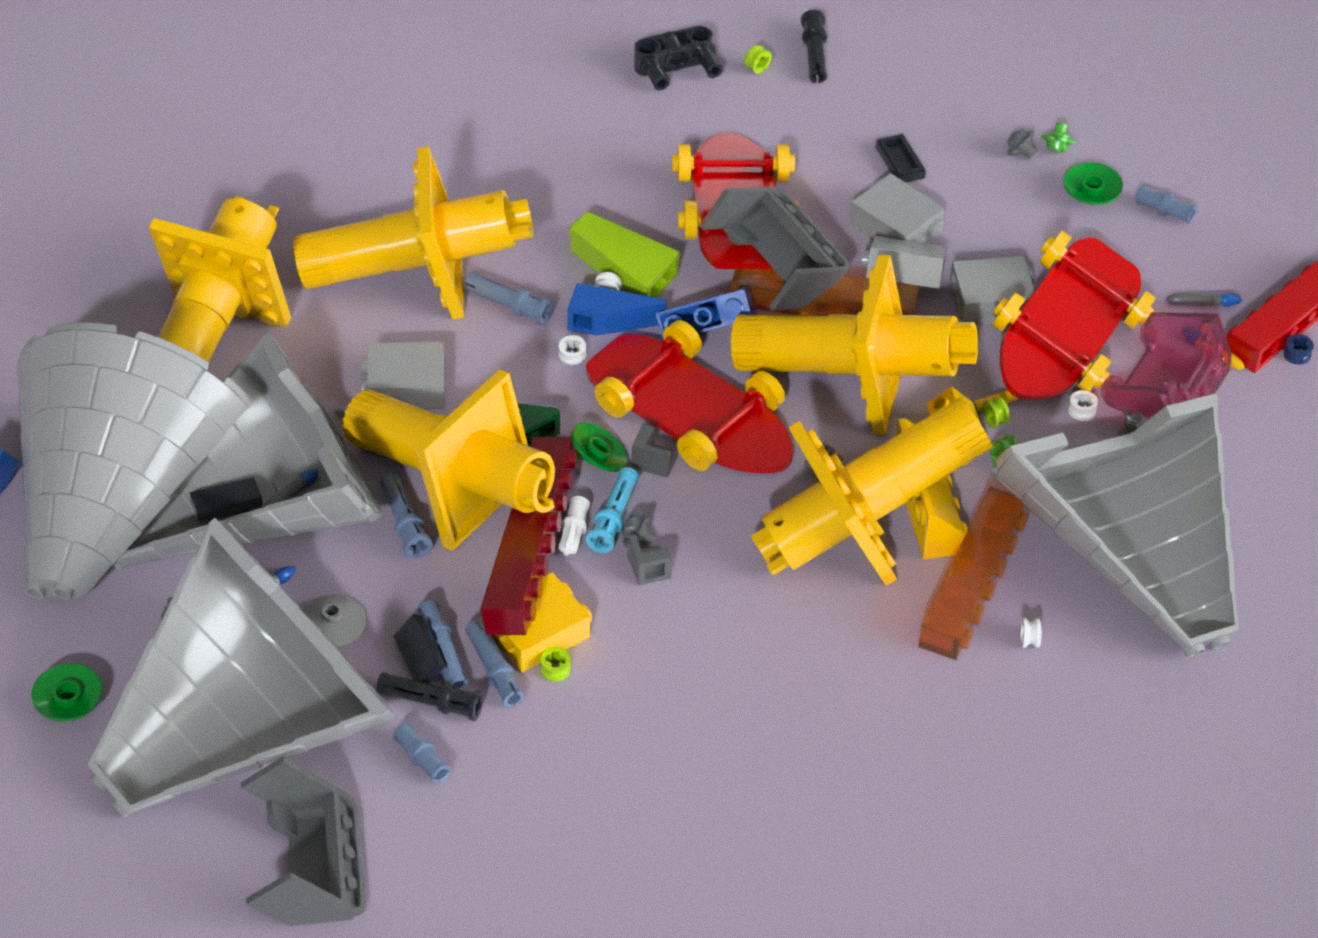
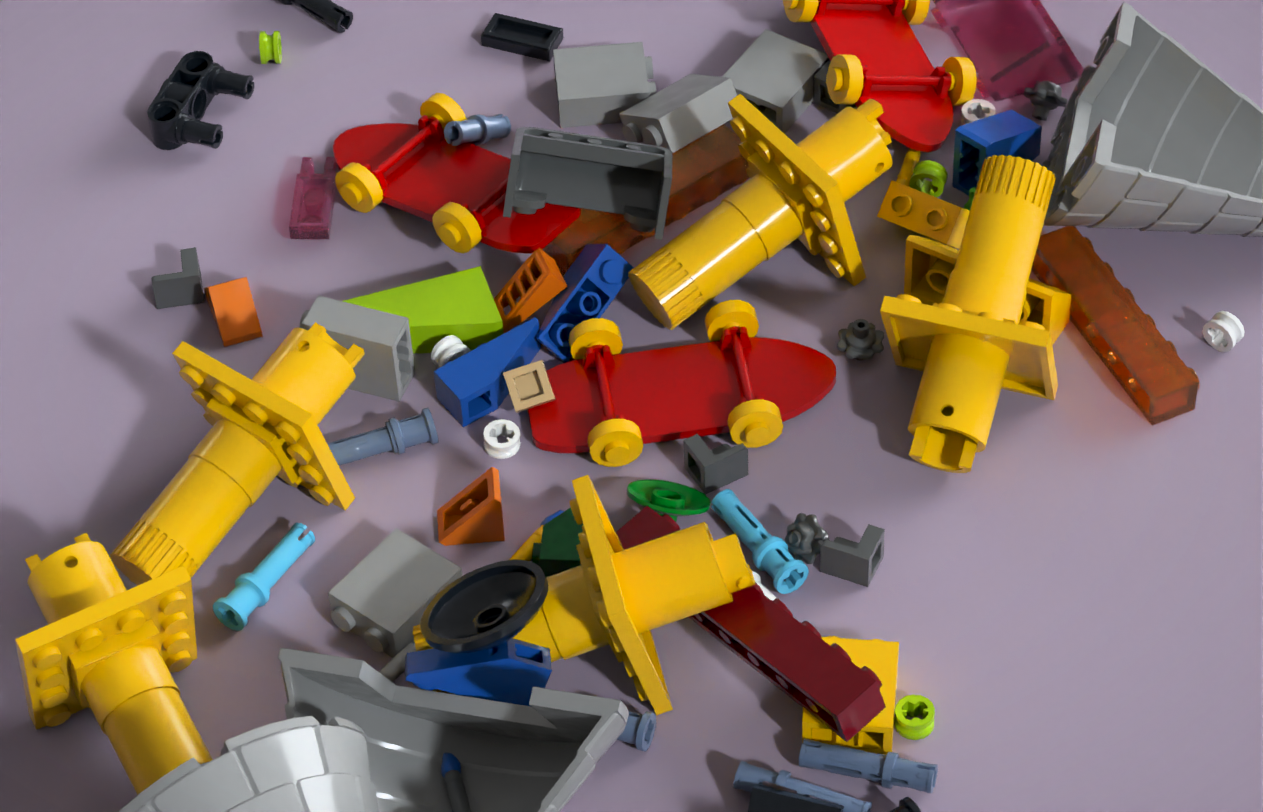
camera: 45 degrees left, 0 degrees up
(349, 315) = (254, 588): none -> medium azure pin
(365, 439) = (494, 674): none -> blue slope
(386, 400) = (485, 607): none -> black dish
(510, 362) = (473, 513): none -> orange slope
(539, 143) = (180, 287): none -> dark grey panel
(542, 175) = (233, 311): none -> orange slope
(559, 241) = (384, 336): none -> light grey brick
(614, 332) = (529, 386): none -> tan plate
(657, 154) = (313, 201): none -> clear pink hinge
(690, 285) = (536, 284): none -> orange slope
(790, 183) = (477, 129): none -> sand blue pin
(1044, 415) = (995, 135): none -> blue slope

